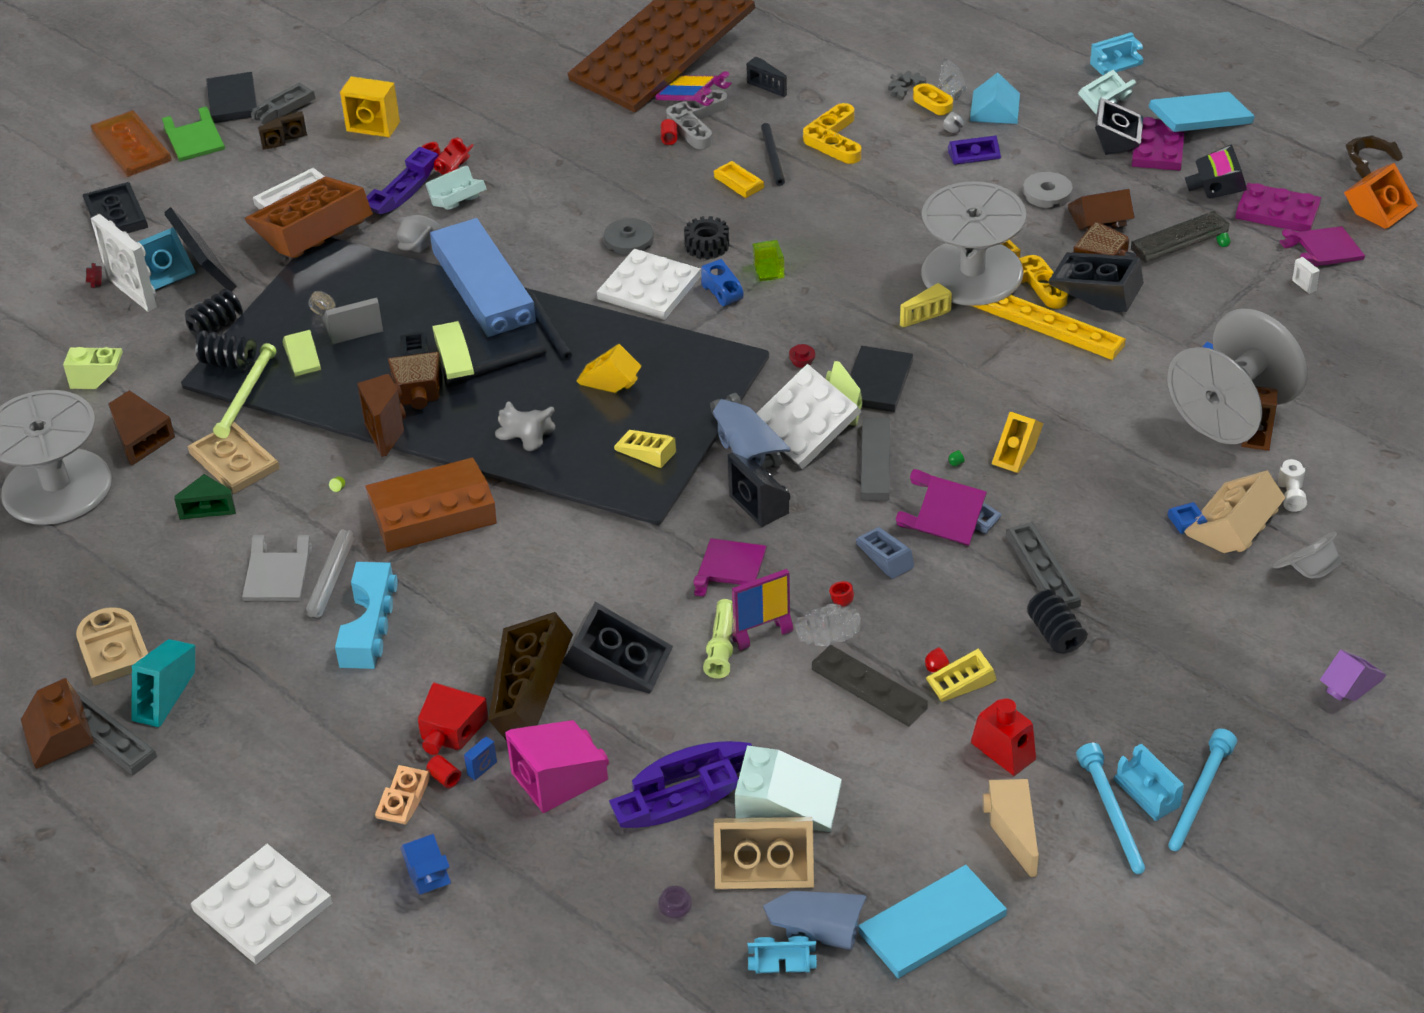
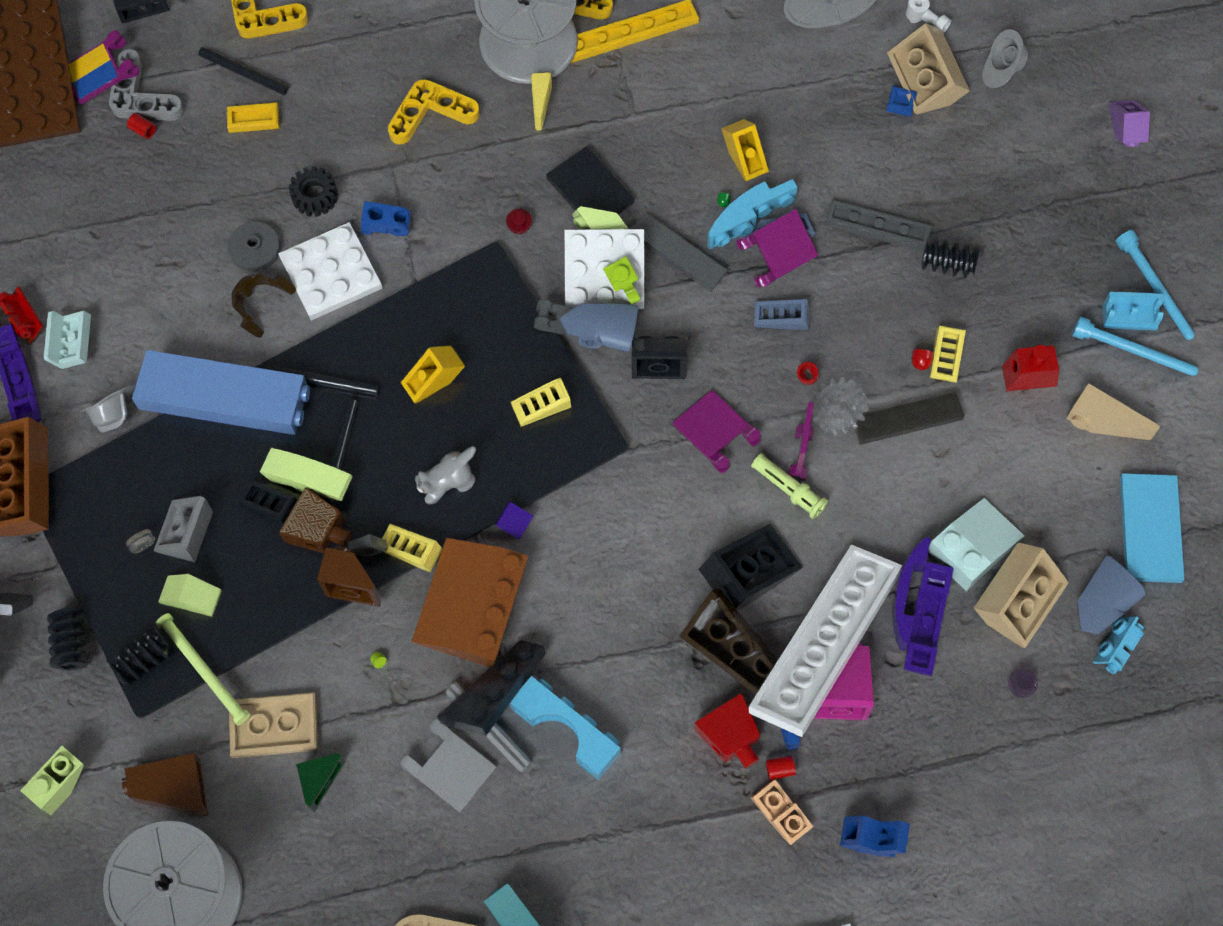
camera: 55 degrees left, 25 degrees up
(359, 548) = (491, 693): none -> black wing
(422, 413) = (368, 546): none -> dark grey tile
(446, 443) = (426, 554): none -> light yellow slope
(526, 489) = (514, 520): none -> dark purple tile
(579, 715) = (825, 640): none -> white plate
(584, 249) = (244, 289): none -> dark brown helmet
(768, 260) = (386, 167): clear neon green panel -> none
(802, 423) = (622, 277): none -> lime plate
(853, 248) = (430, 101): none -> yellow beam
(963, 470) = (741, 214): none -> medium azure slope

